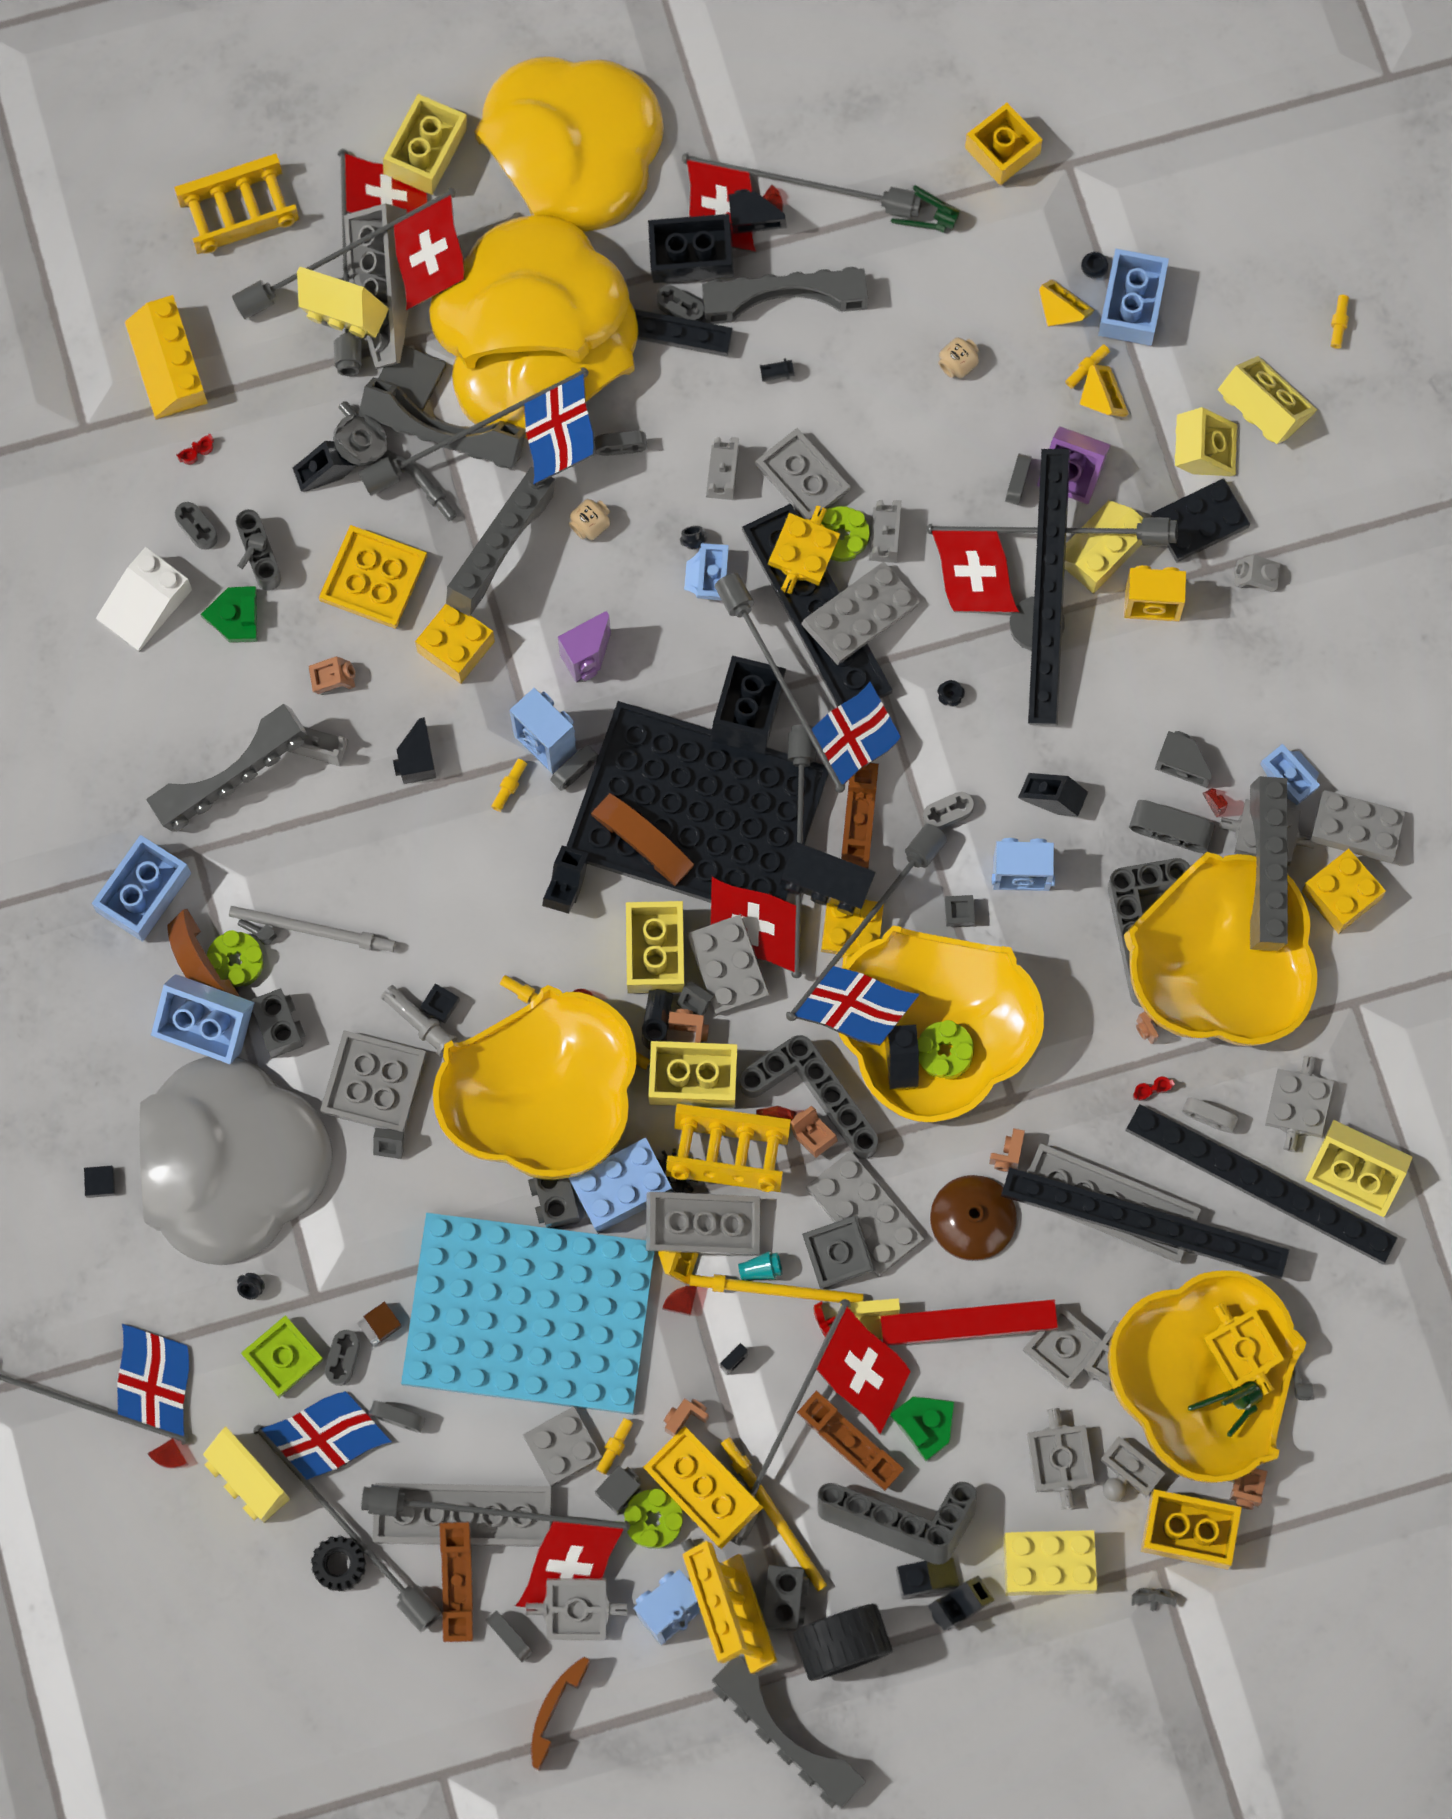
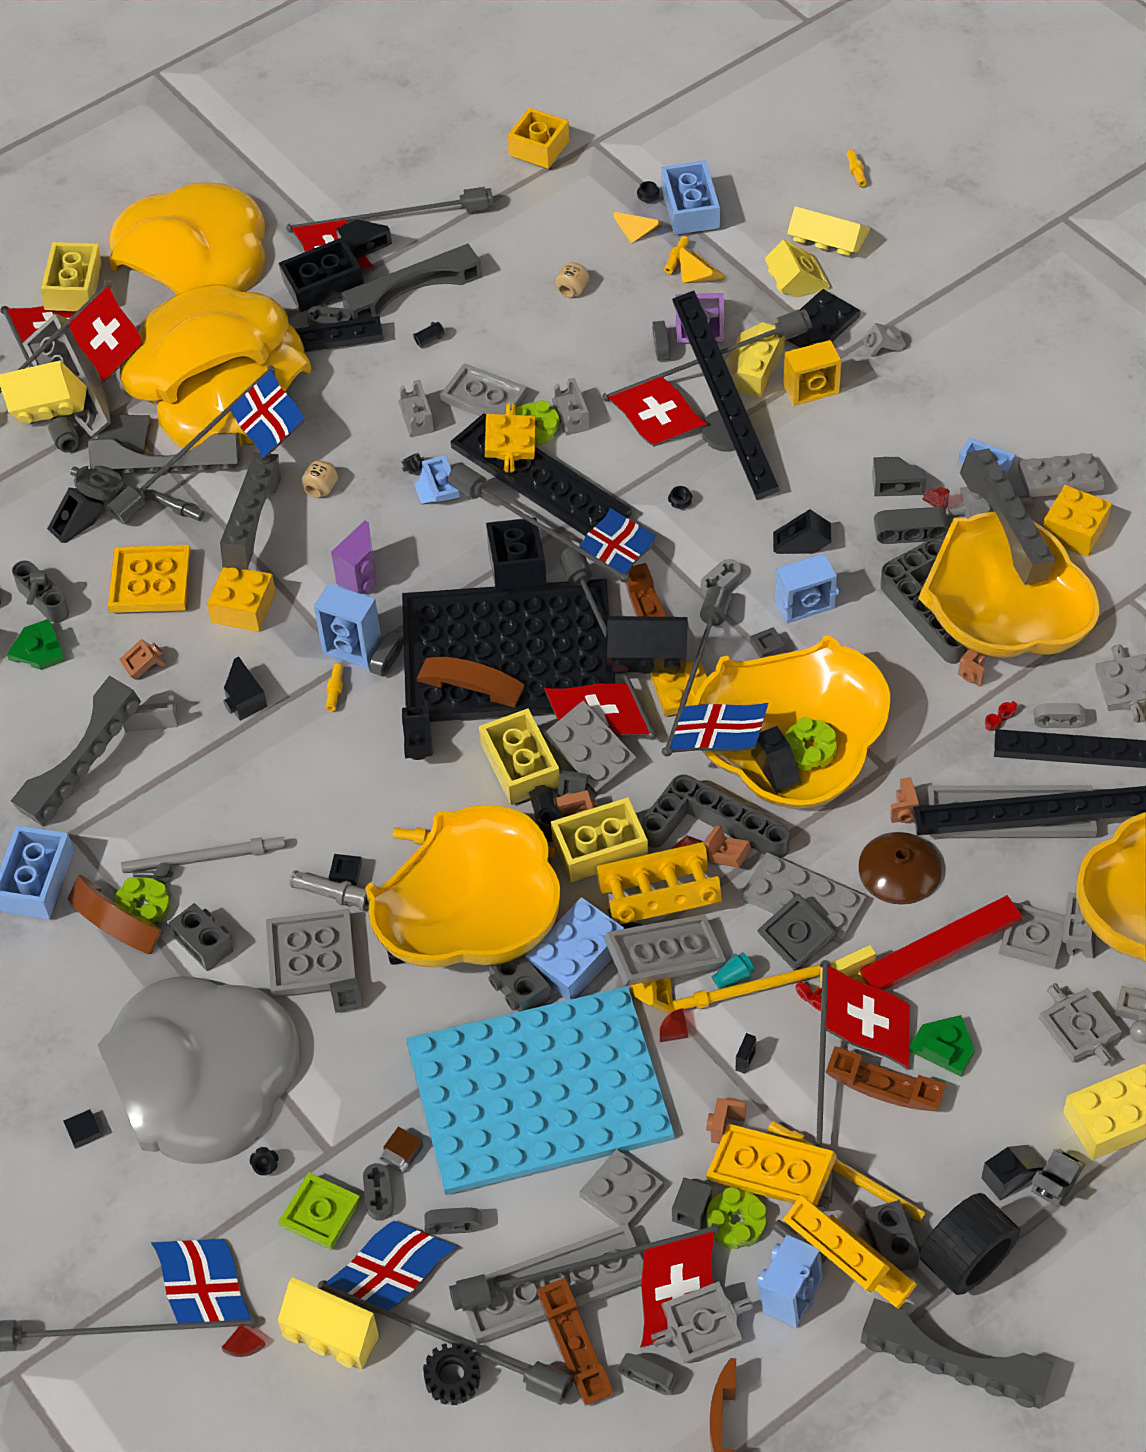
camera: 20 degrees left, 20 degrees down
(202, 1019) = (130, 951): light blue brick -> none
(614, 1446) = (670, 1169): yellow bar -> none
(620, 443) = (322, 420): dark grey beam -> none
(860, 613) = (578, 465): light grey plate -> none
(902, 1529) = (963, 1129): dark grey beam -> none
(945, 214) = (514, 194): dark green plant -> none

